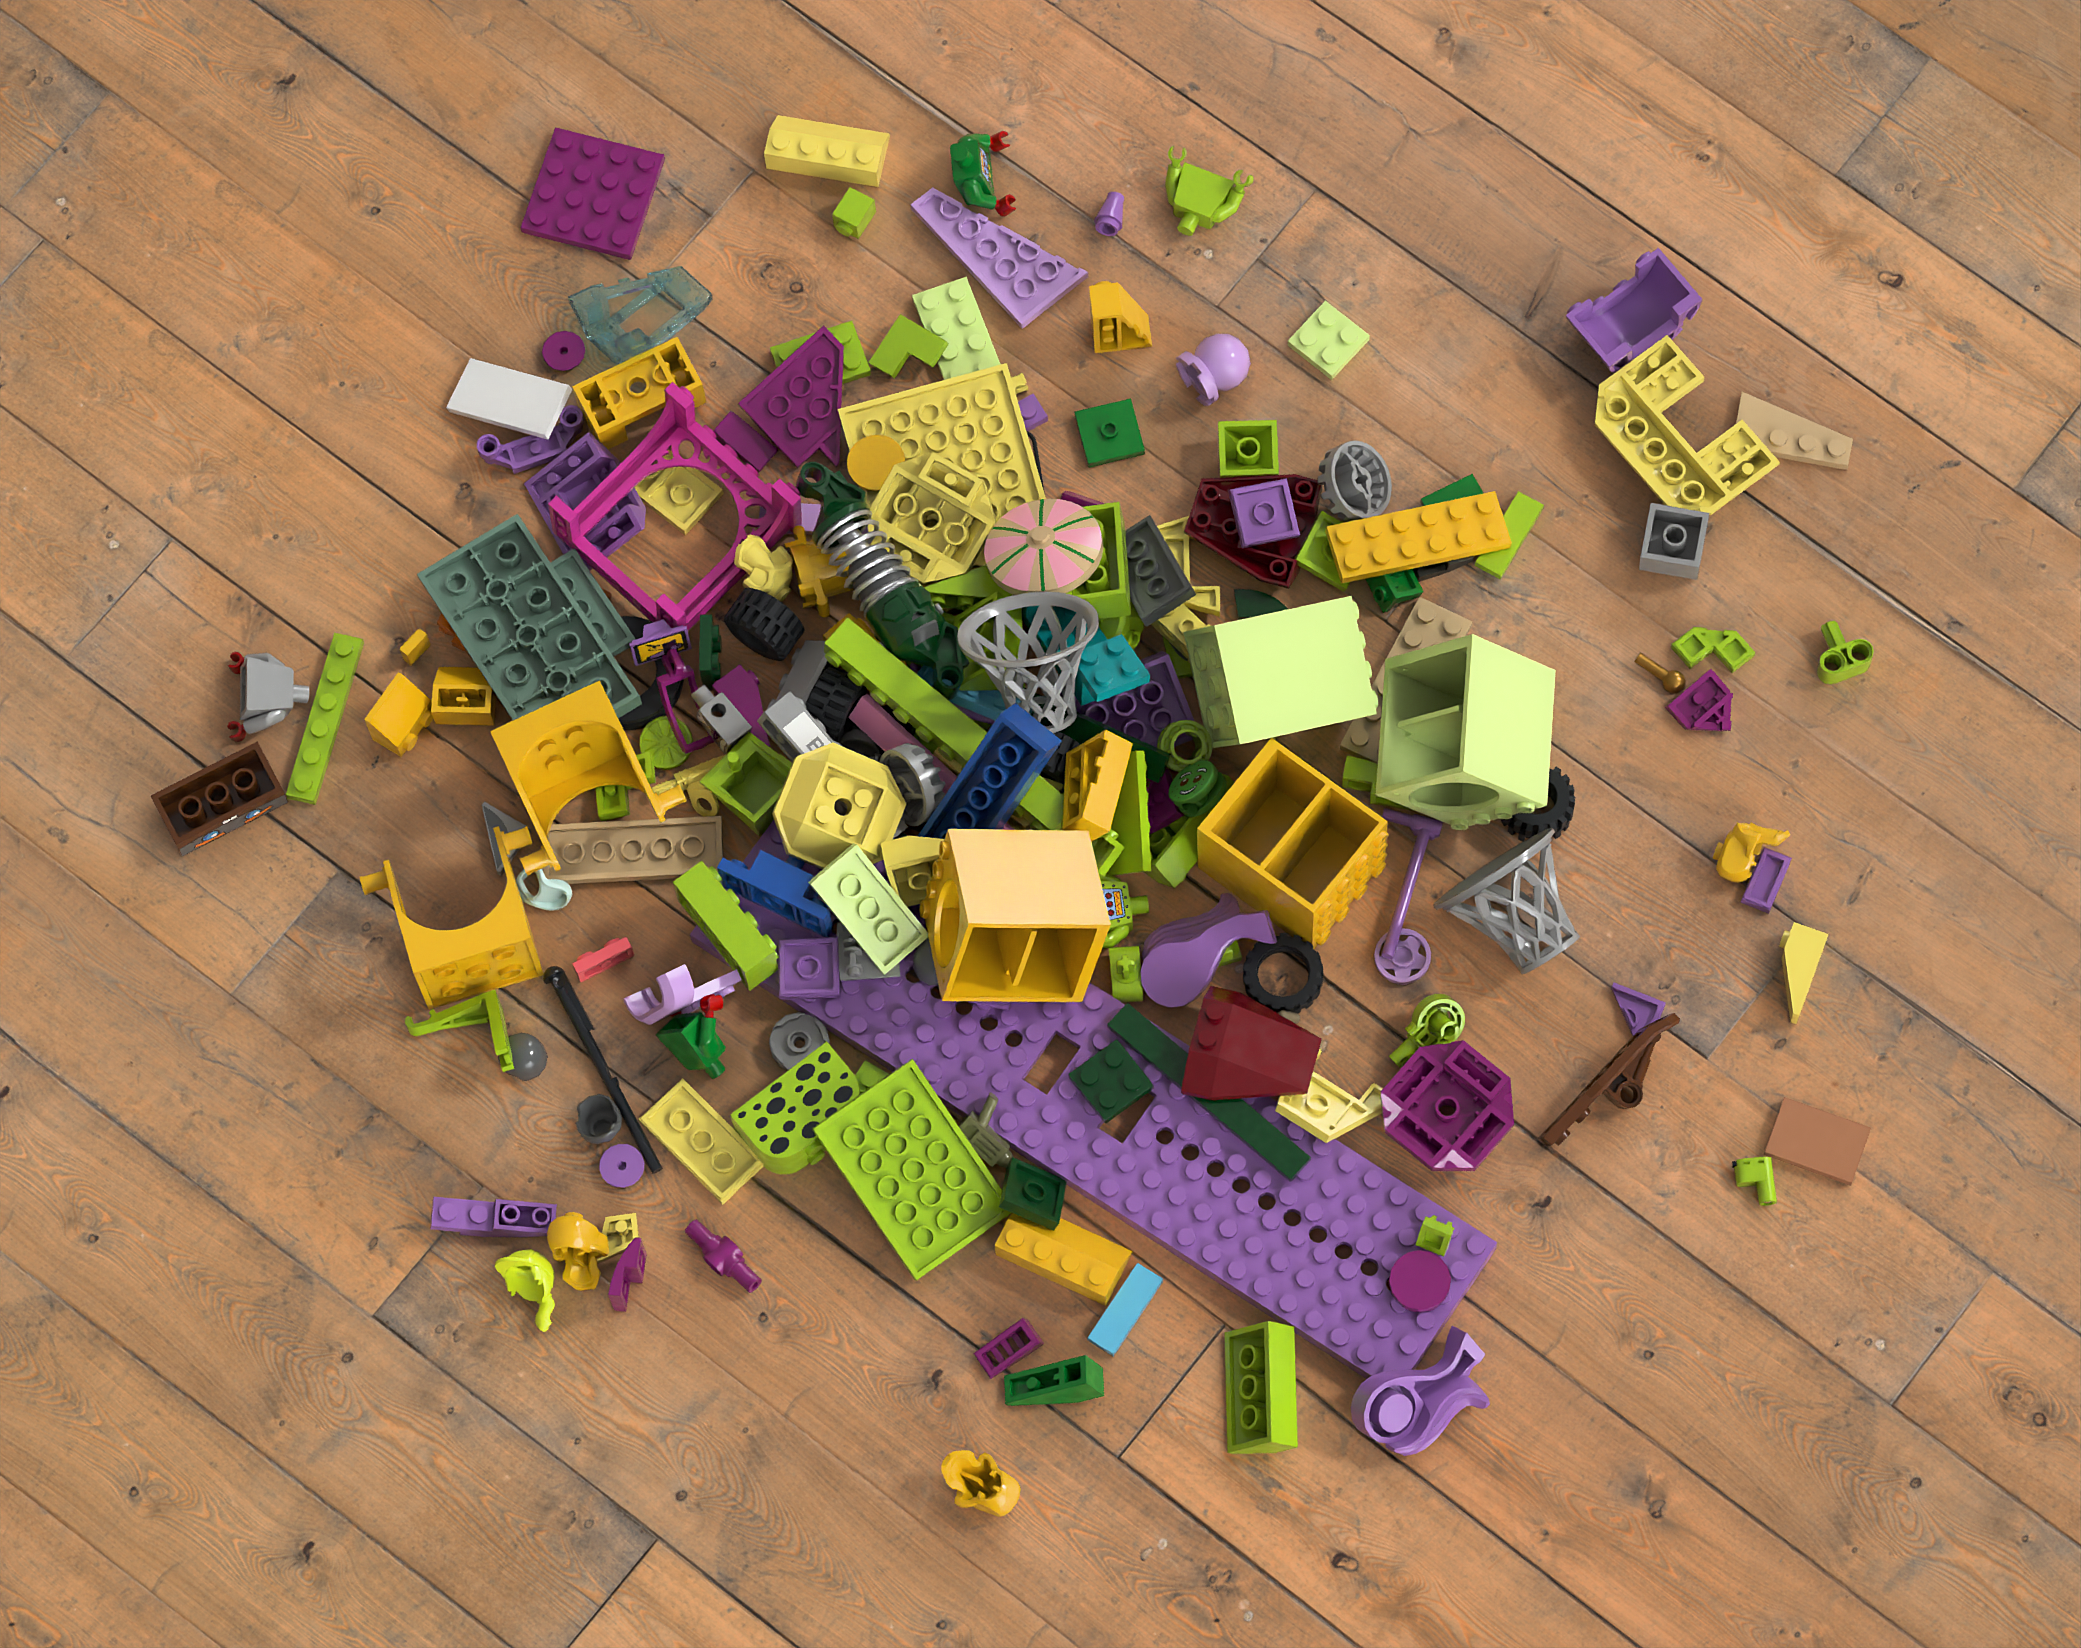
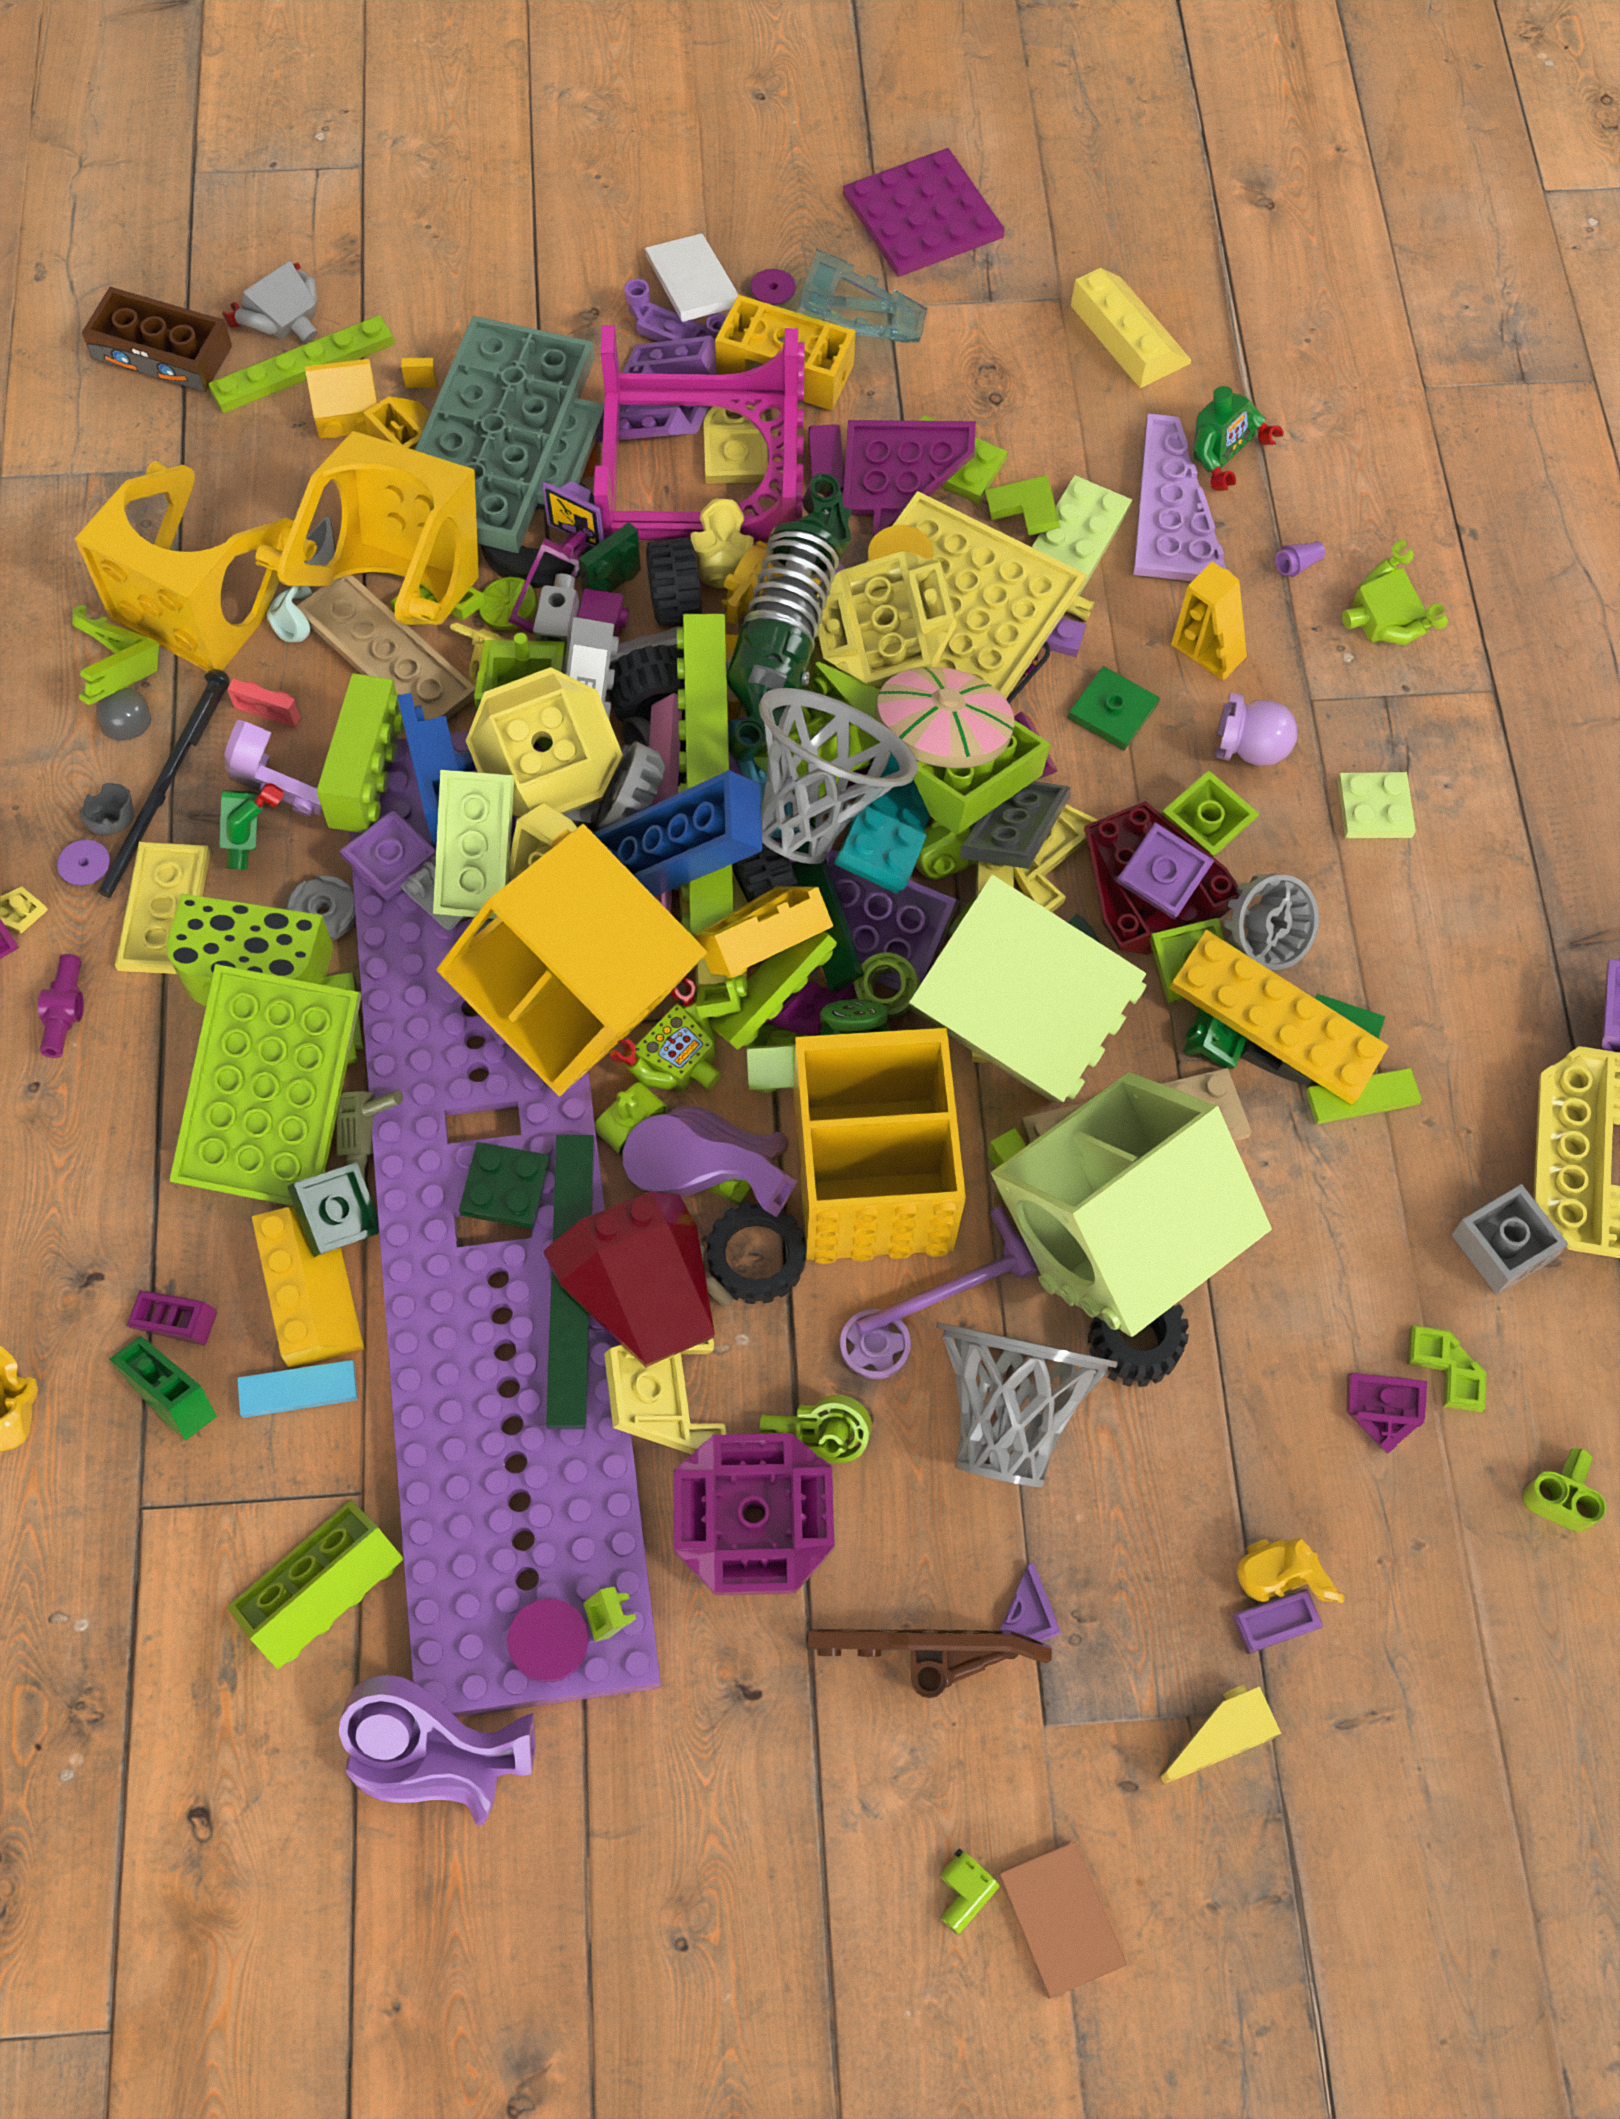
camera: 40 degrees right, 5 degrees down
(853, 213) = (1097, 383): lime brick -> none
(1672, 681) = (1379, 1357): pearl gold bar -> none

